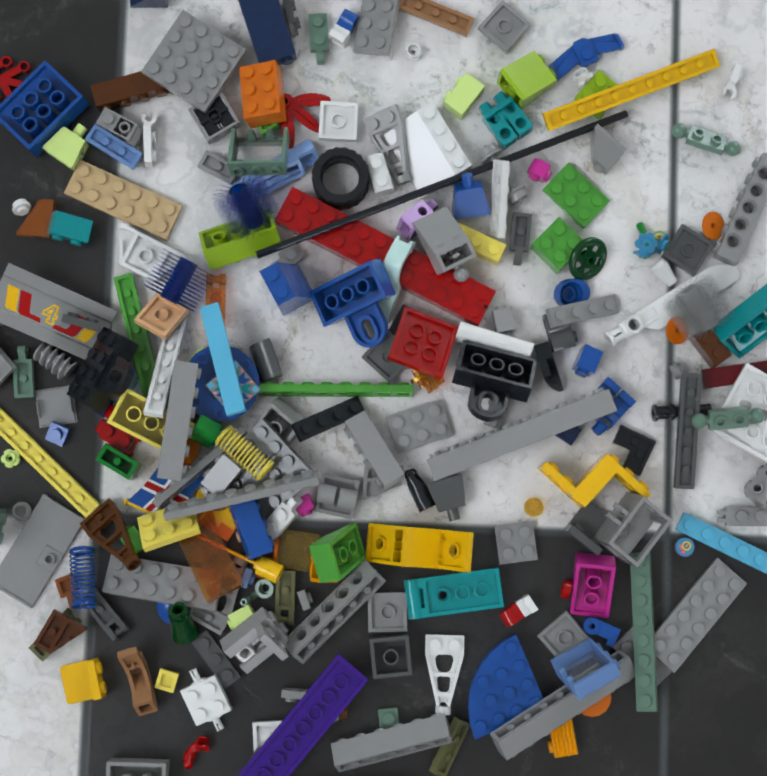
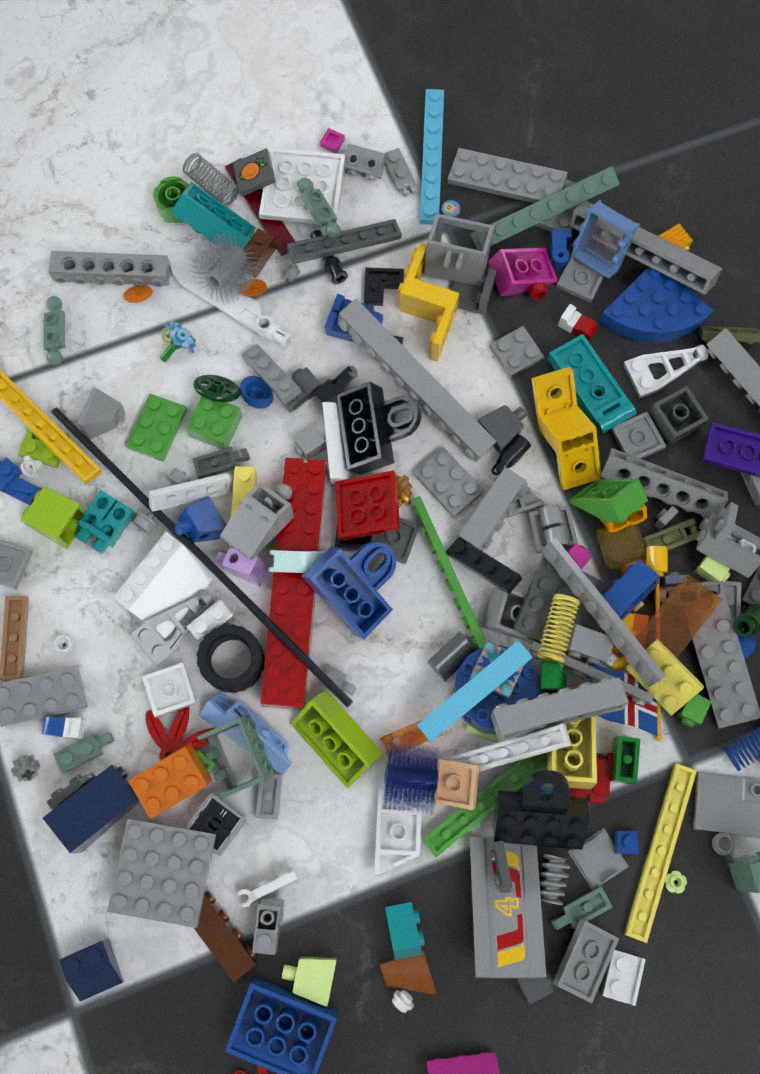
camera: 115 degrees left, 10 degrees down
(99, 520) = (691, 754): reddish brown plate -> none
(114, 147) = (292, 923): medium blue plate -> none
(123, 200) = (346, 888): tan plate -> none
(246, 206) = (302, 739): clear blue piece -> none
(259, 591) = (679, 564): sand green plate -> none
(282, 517) = (599, 569): white plate -> none
(287, 286) = (370, 661): blue slope -> none
(388, 717) = (732, 398): sand green plate -> none
(463, 95) = (94, 573): yellowish green brick -> none
(533, 507) = (476, 348): clear yellow plate -> none
(539, 171) = (145, 469): dark pink plate -> none
(587, 361) = (318, 350): blue brick -> none
(663, 272) = (199, 322): white cone -> none
(687, 250) = (170, 305): dark grey plate -> none

